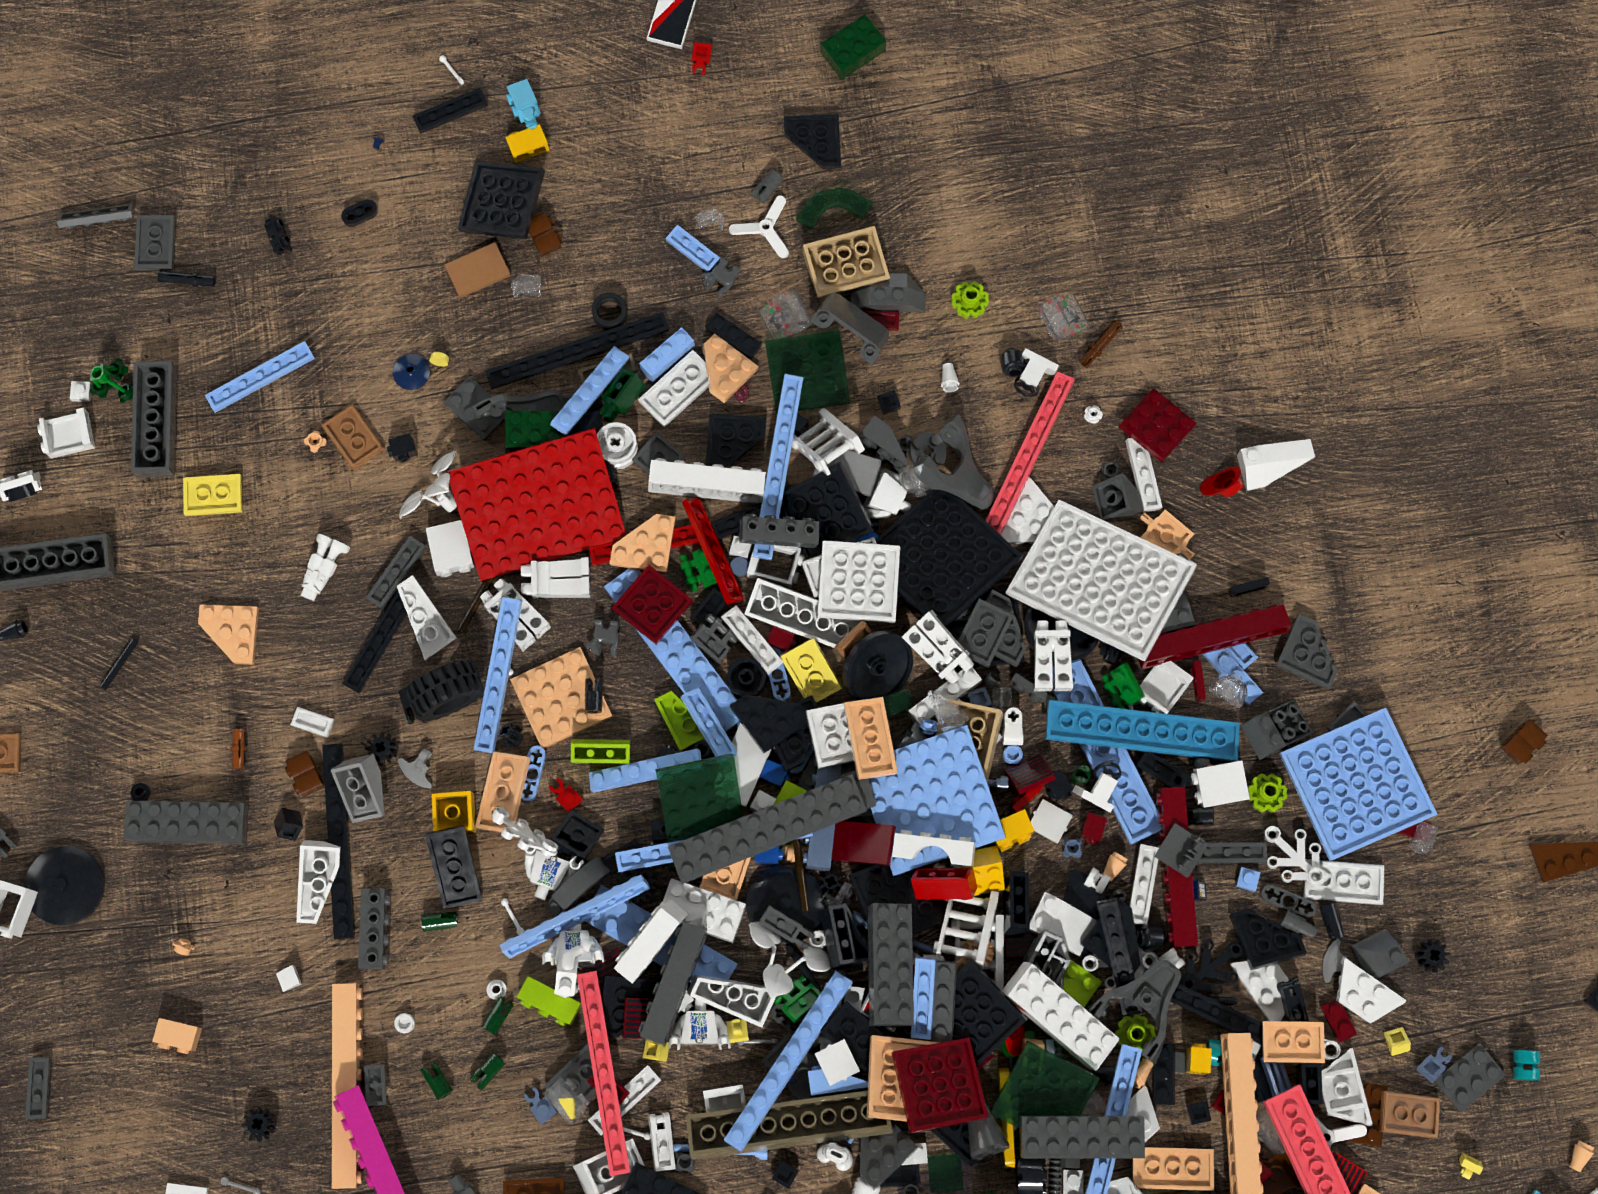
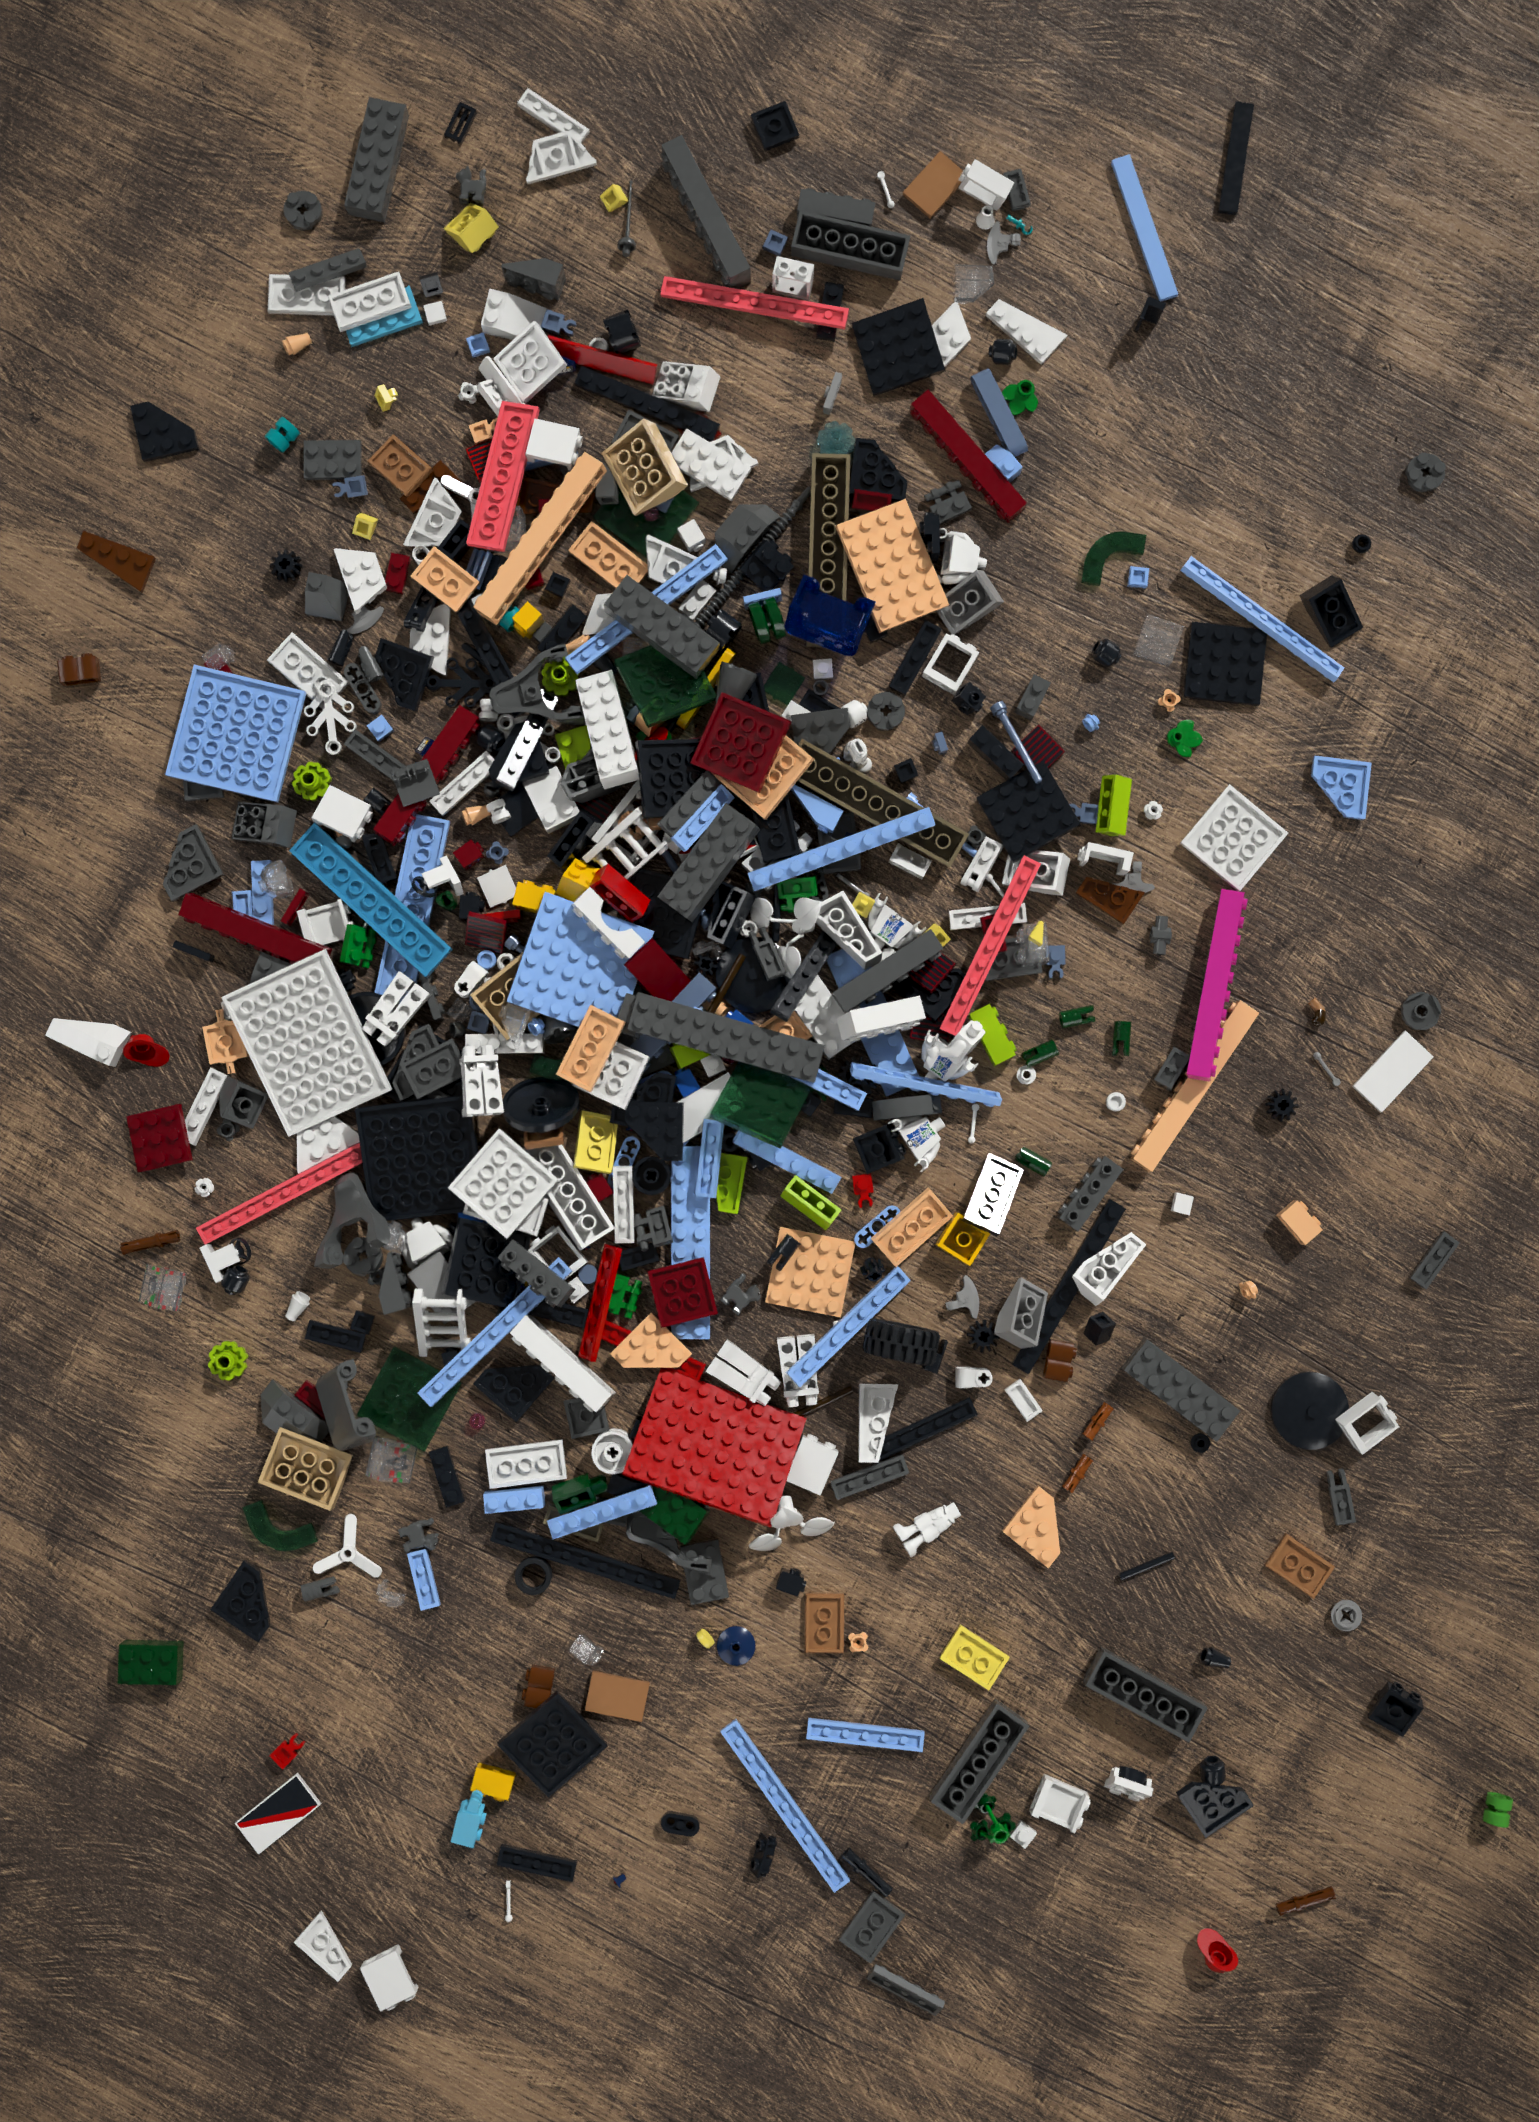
camera: 145 degrees left, 10 degrees up
(226, 696) = (1077, 1473): none -> dark orange pin
(286, 282) = (785, 1805): none -> light blue plate
(368, 708) = (968, 1377): none -> white piece
(521, 830) = (918, 1179): white plant -> none
(725, 368) = (474, 1451): light nougat plate -> none
(740, 929) = (804, 977): none -> black tile
(837, 1062) = (805, 820): white piece -> none
(901, 376) = (335, 1336): none -> black plate
(1001, 762) = (502, 957): none -> white plate

